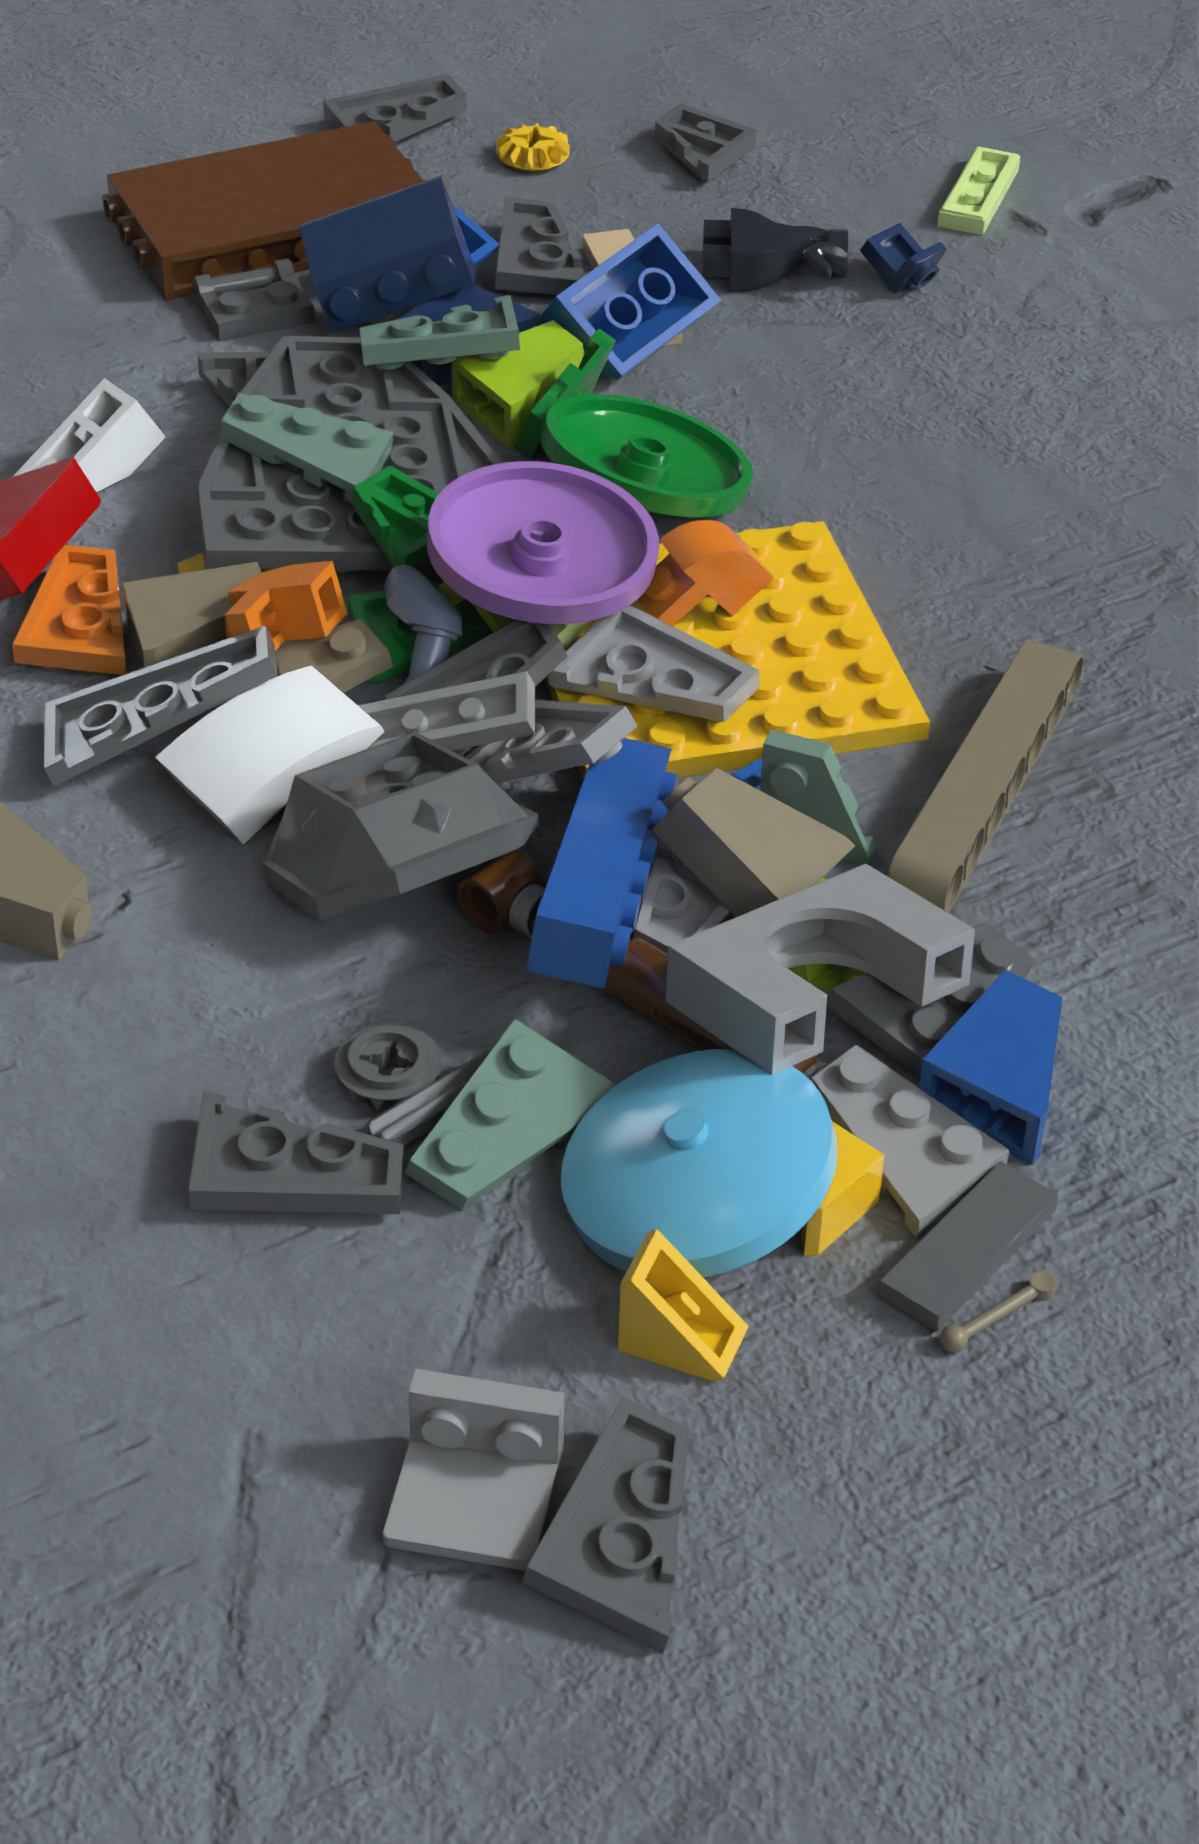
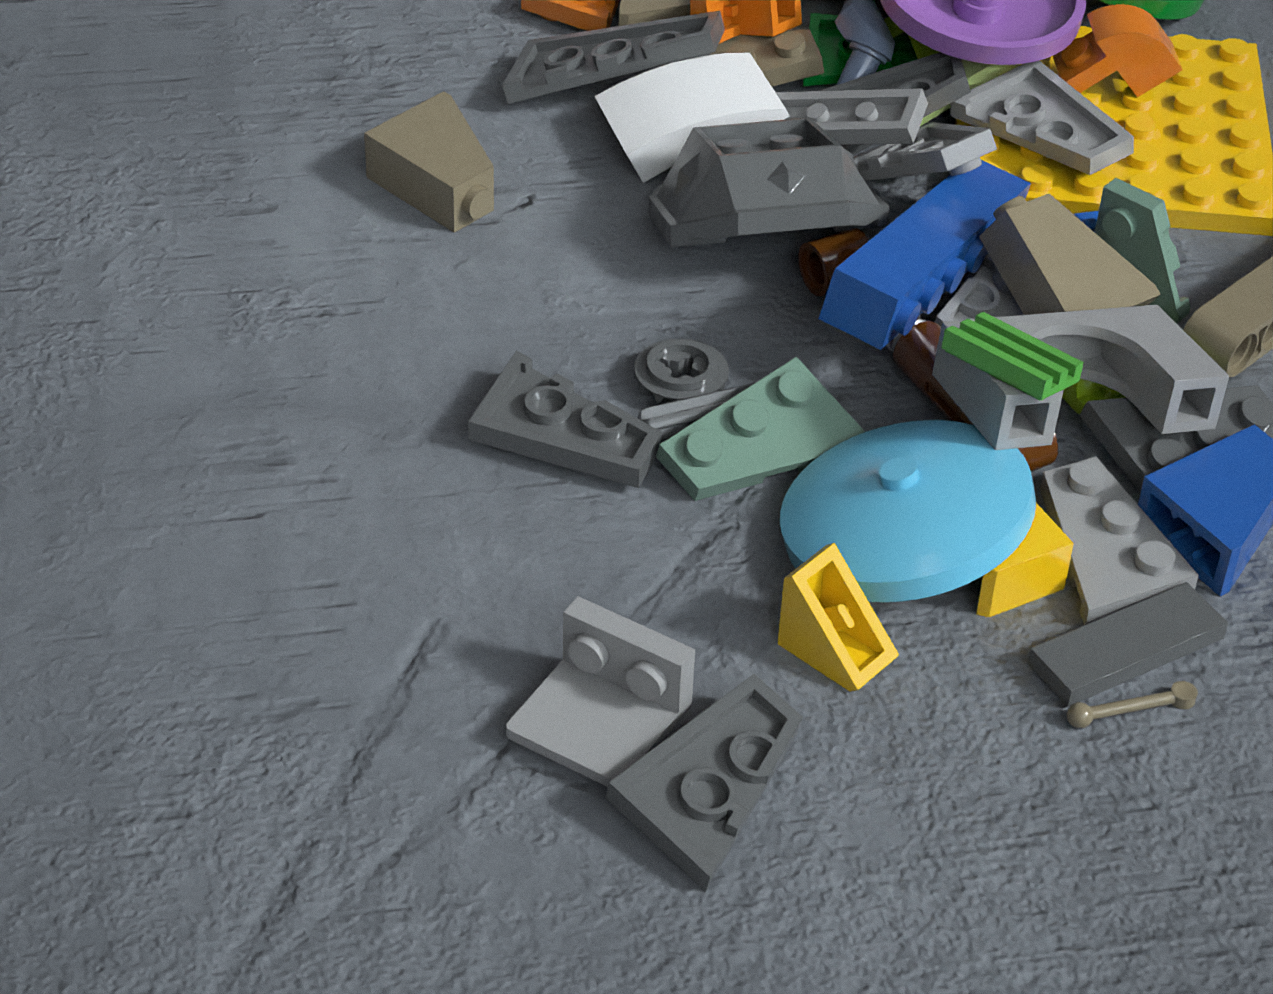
camera: 20 degrees right, 0 degrees up
(762, 970) = (1012, 356): none -> bright green tile

